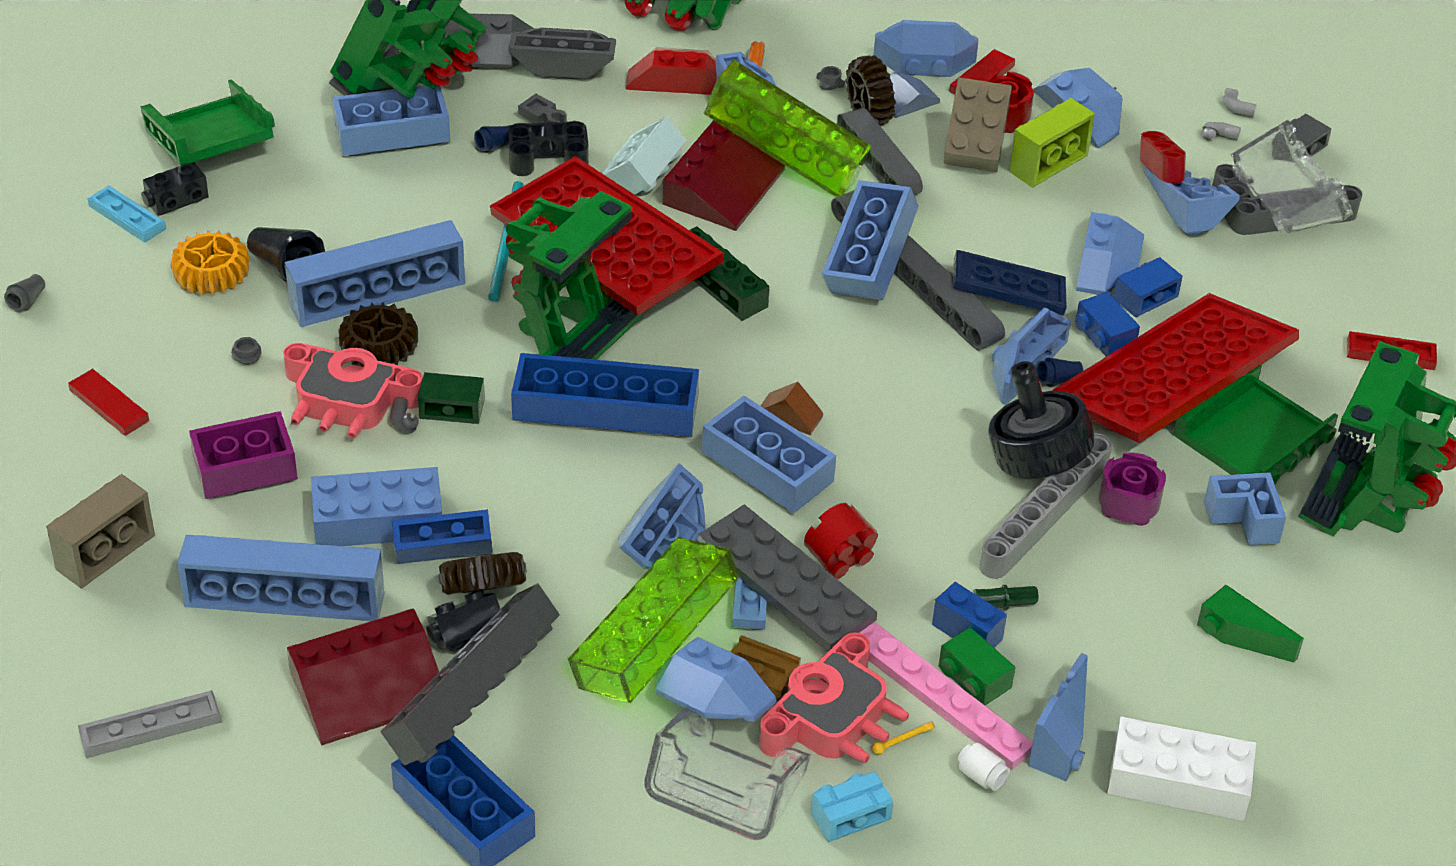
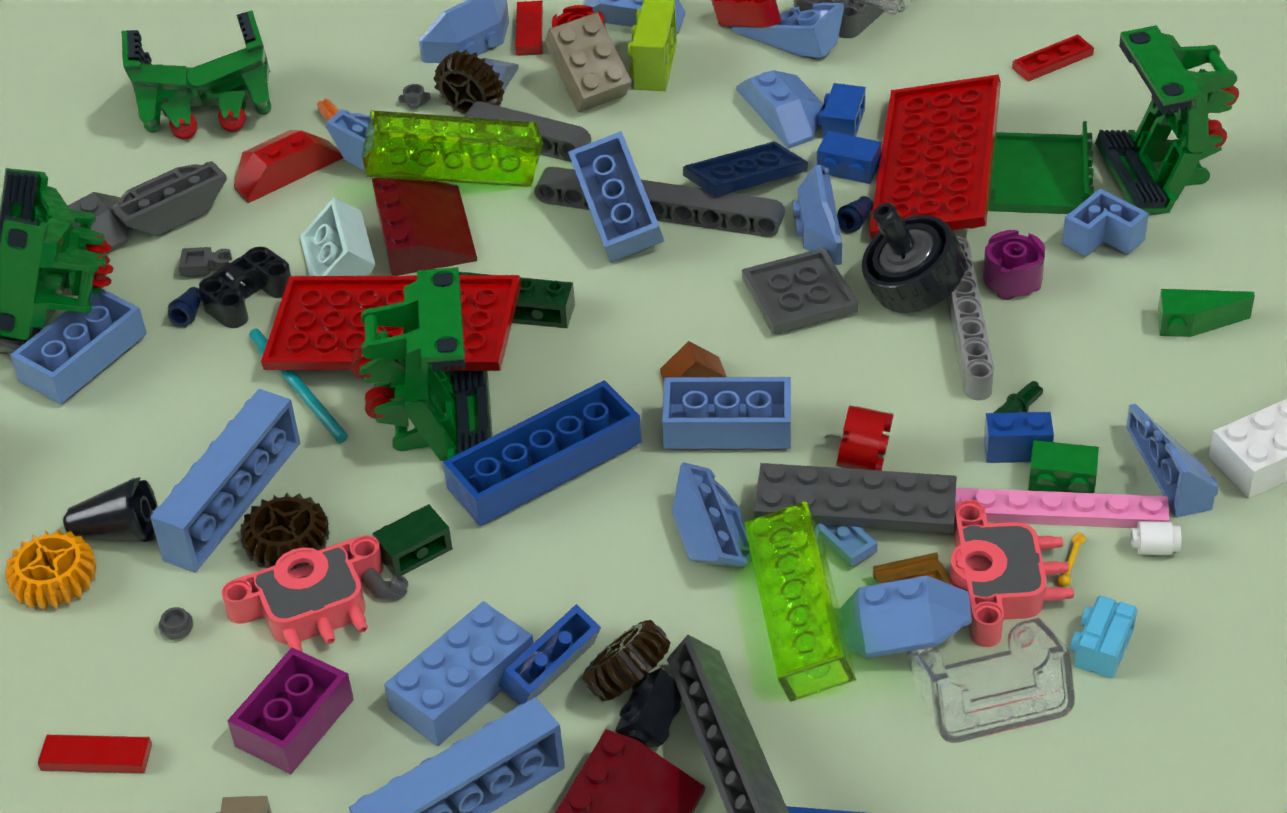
camera: 35 degrees left, 0 degrees up
(941, 402) = (799, 290): none -> dark grey plate

